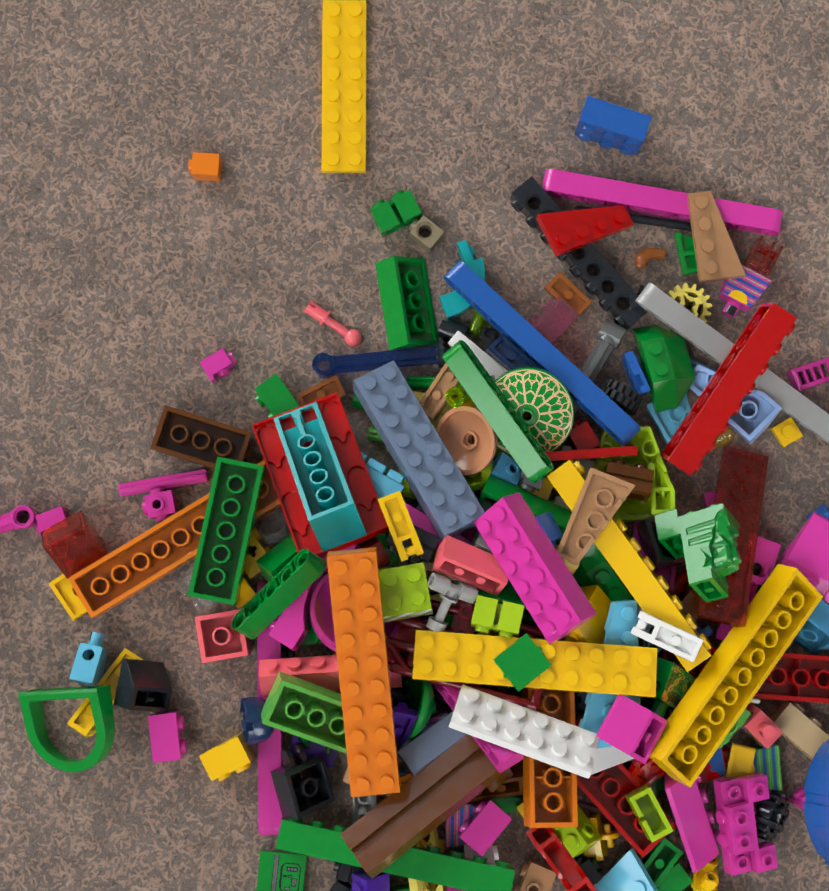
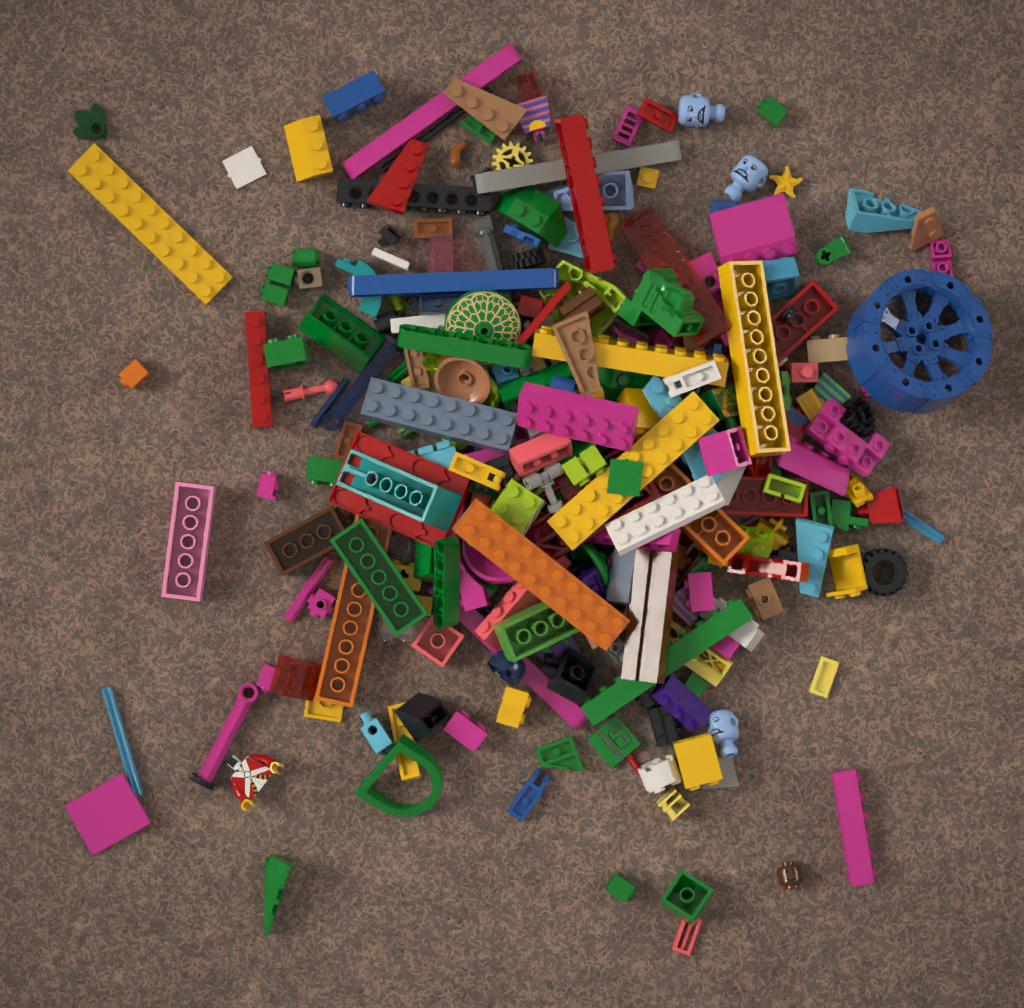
camera: 45 degrees left, 5 degrees up
(106, 343) = (188, 541): none -> bright pink brick
(160, 847) = (527, 796): none -> blue hinge
(224, 840) = (560, 755): none -> green wing
(309, 264) = (258, 371): none -> red brick
(339, 349) = (328, 404): none -> dark blue bar
(344, 268) = (287, 353): none -> green brick
(440, 214) = (306, 257): none -> green brick
(464, 96) = (244, 167): none -> white piece
(508, 284) = (391, 259): none -> white tile
(525, 264) = (389, 235): none -> black tile
(533, 132) = (308, 148): none -> yellow slope
(800, 665) = (789, 313): none -> black bush

